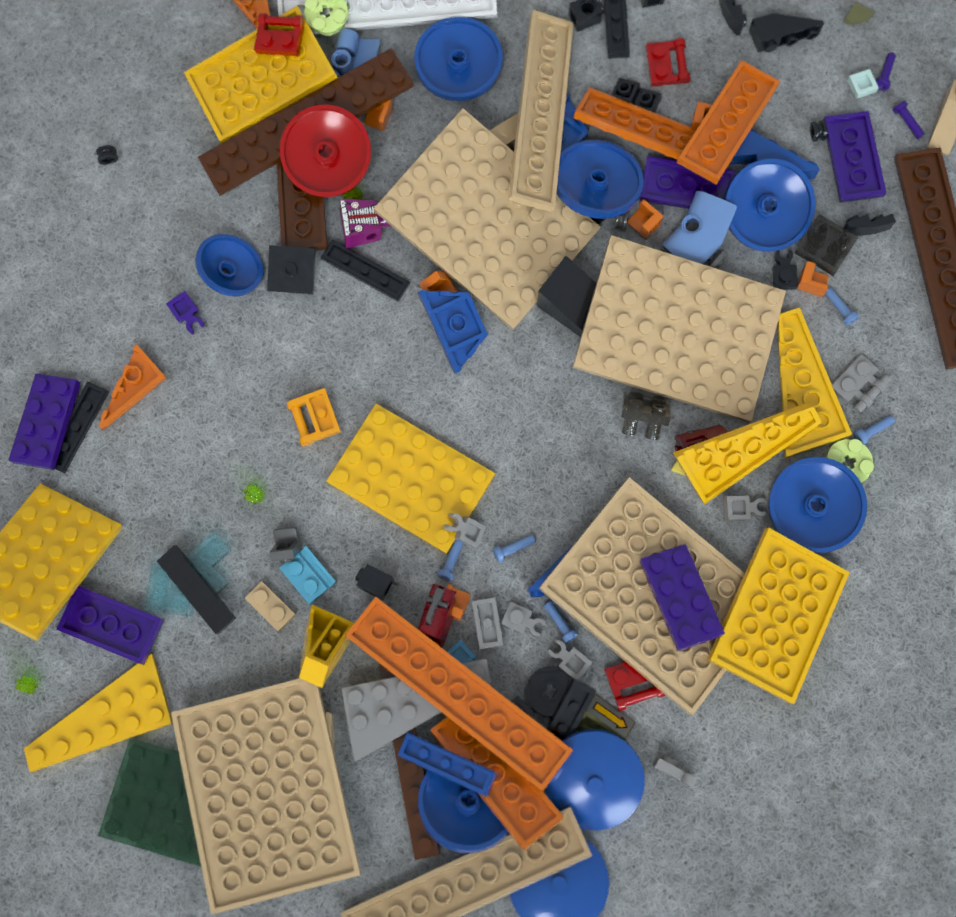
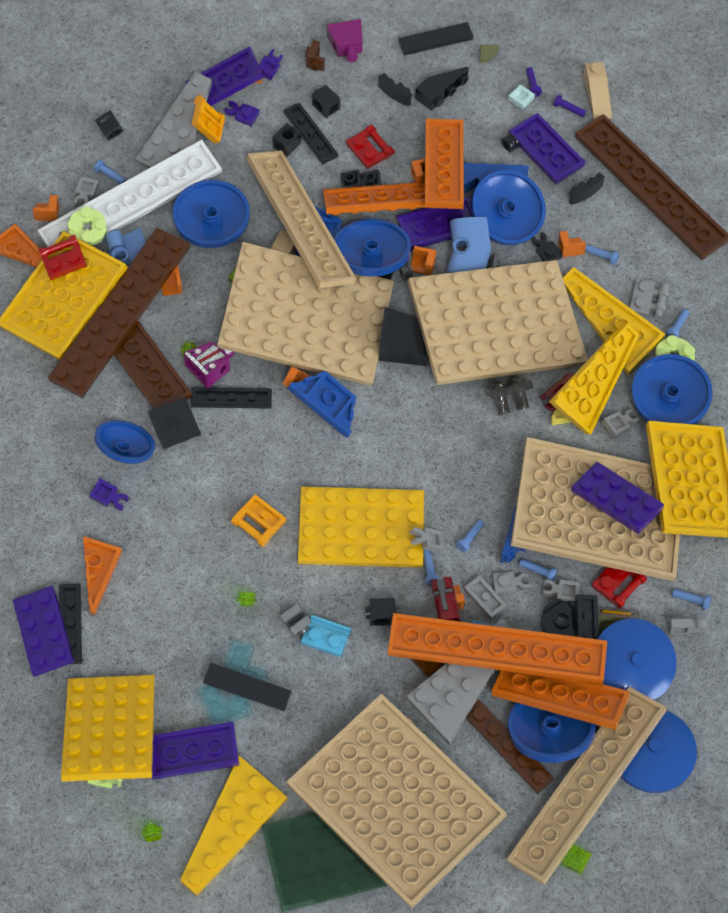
camera: 35 degrees left, 15 degrees down
(270, 606) = (310, 673): tan plate -> none
(323, 645) = (372, 670): yellow wedge -> none
(325, 151) = (152, 322): red dish -> none
(447, 764) = (520, 703): blue tile -> none
(701, 742) = (705, 601): none -> medium blue piece
(826, 245) = (565, 216): clear smoke plate -> none

